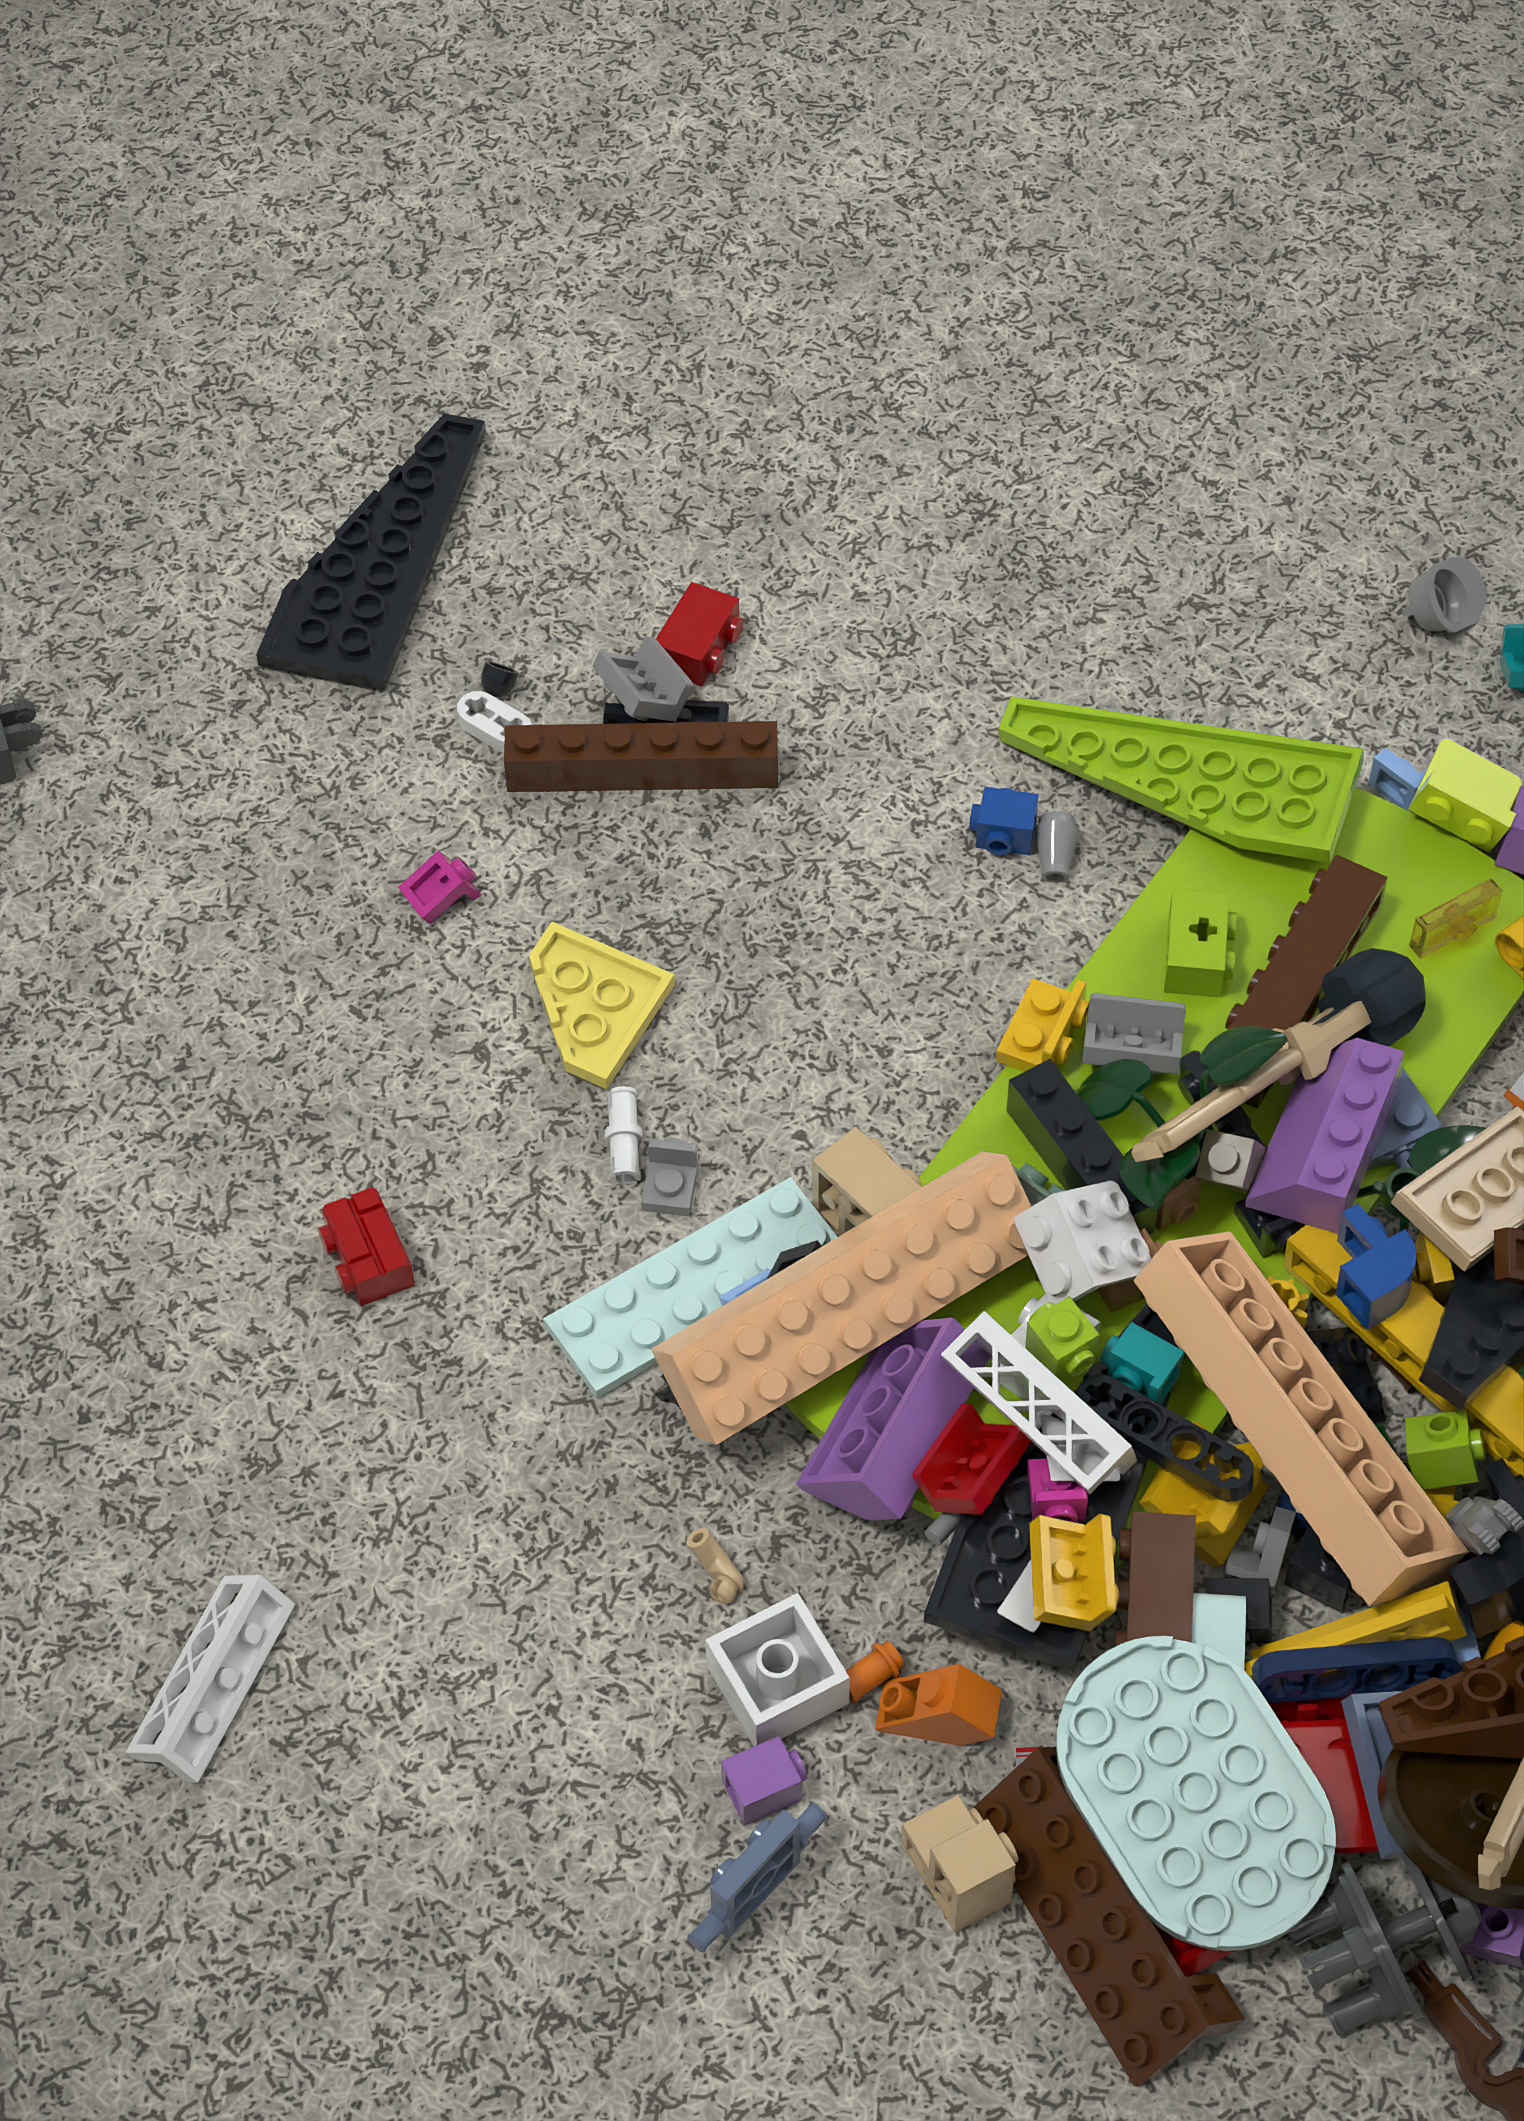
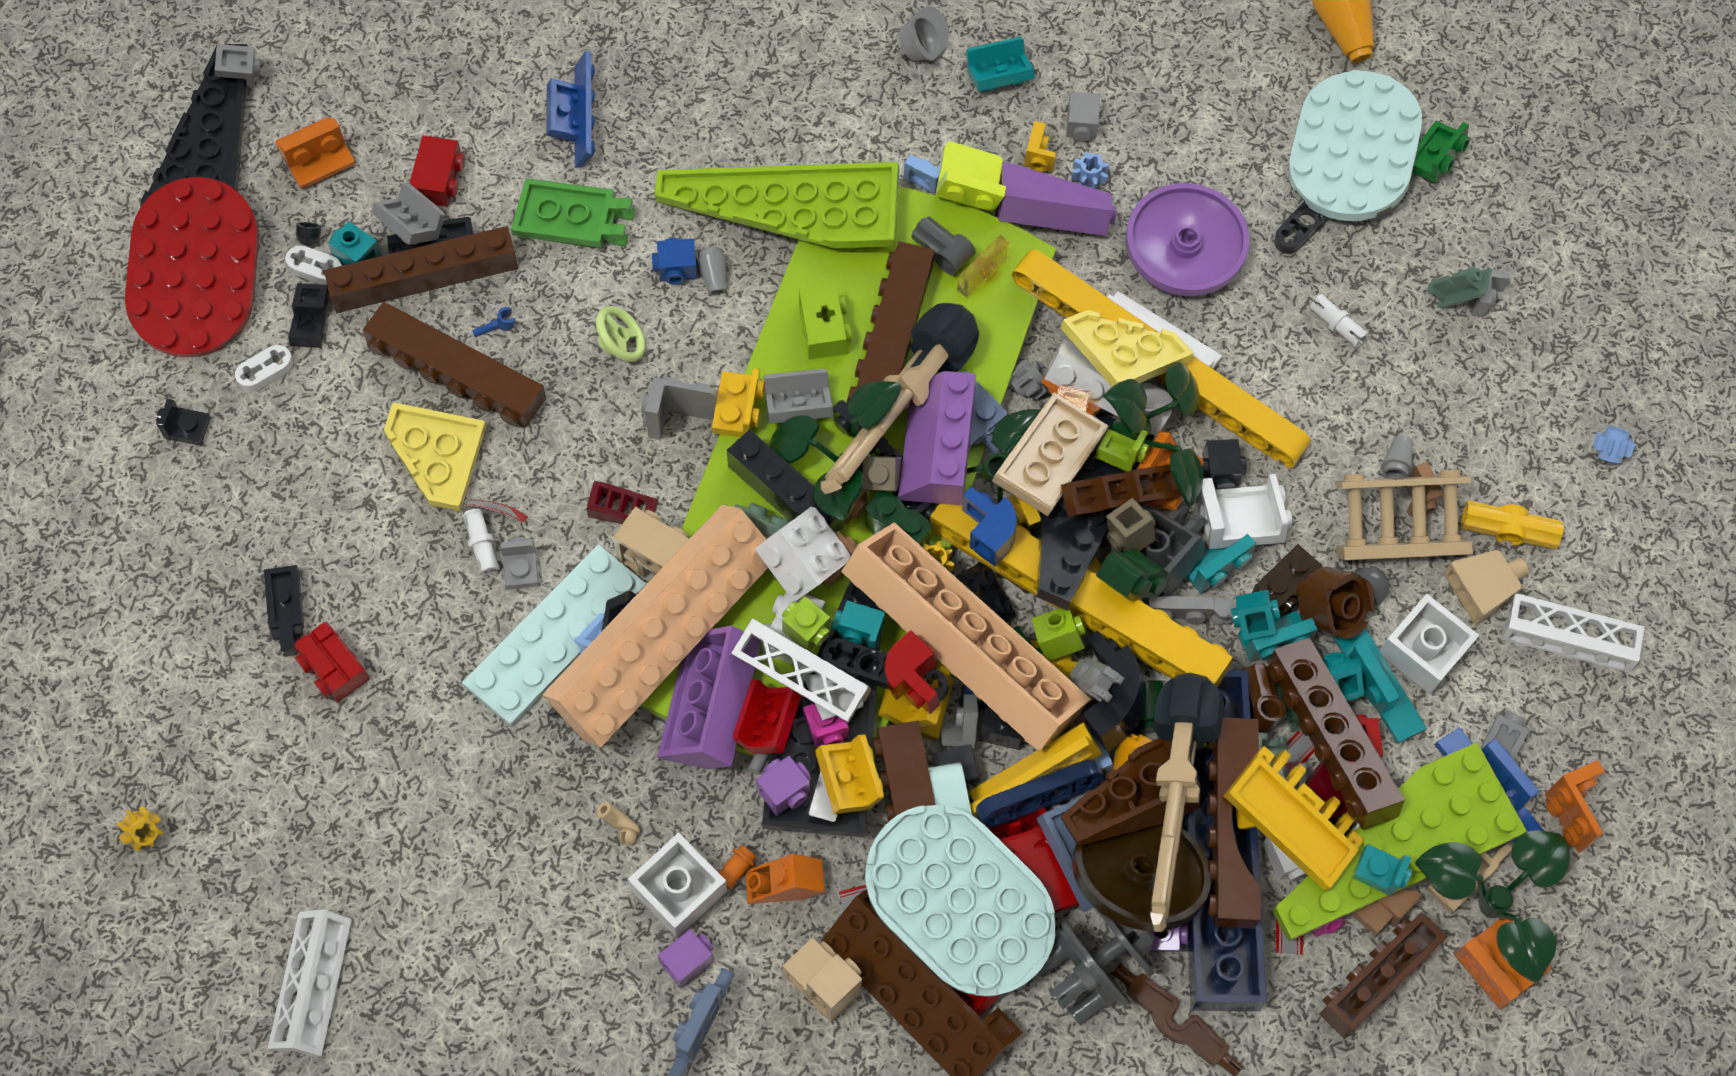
camera: 20 degrees left, 10 degrees up
(38, 1417) = (136, 820): none -> yellow gear
(253, 887) = (182, 423): none -> black bracket
(324, 1158) = (284, 606): none -> black hinge
(327, 687) = (192, 267): none -> red plate
(387, 840) = (264, 368): none -> white beam
(438, 885) = (309, 393): dark pink bracket -> none
(464, 440) = (237, 62): none -> light grey bracket
(469, 785) = (309, 315): none -> black slope
(538, 577) = (315, 152): none -> orange bracket
(554, 702) = (353, 245): none -> teal brick
(652, 892) = (454, 365): none -> reddish brown brick
(676, 1104) = (502, 508): none -> sticker
(732, 852) = (498, 323): none -> blue hand
(827, 1112) = (613, 492): none -> dark red slope
(873, 730) = (571, 214): none -> bright green tile
(889, 904) = (615, 336): none -> yellowish green piece
(908, 594) = (570, 110): none -> blue bracket
(956, 1001) = (678, 398): none -> light grey bracket
(970, 1560) = (784, 784): none -> medium lavender brick
(1195, 1434) = (904, 669): none -> red brick
(1227, 1211) = (887, 509): none -> dark green brick
(1409, 886) = (950, 250): none -> dark grey piece
(1486, 1092) = (1029, 378): none -> light grey gear

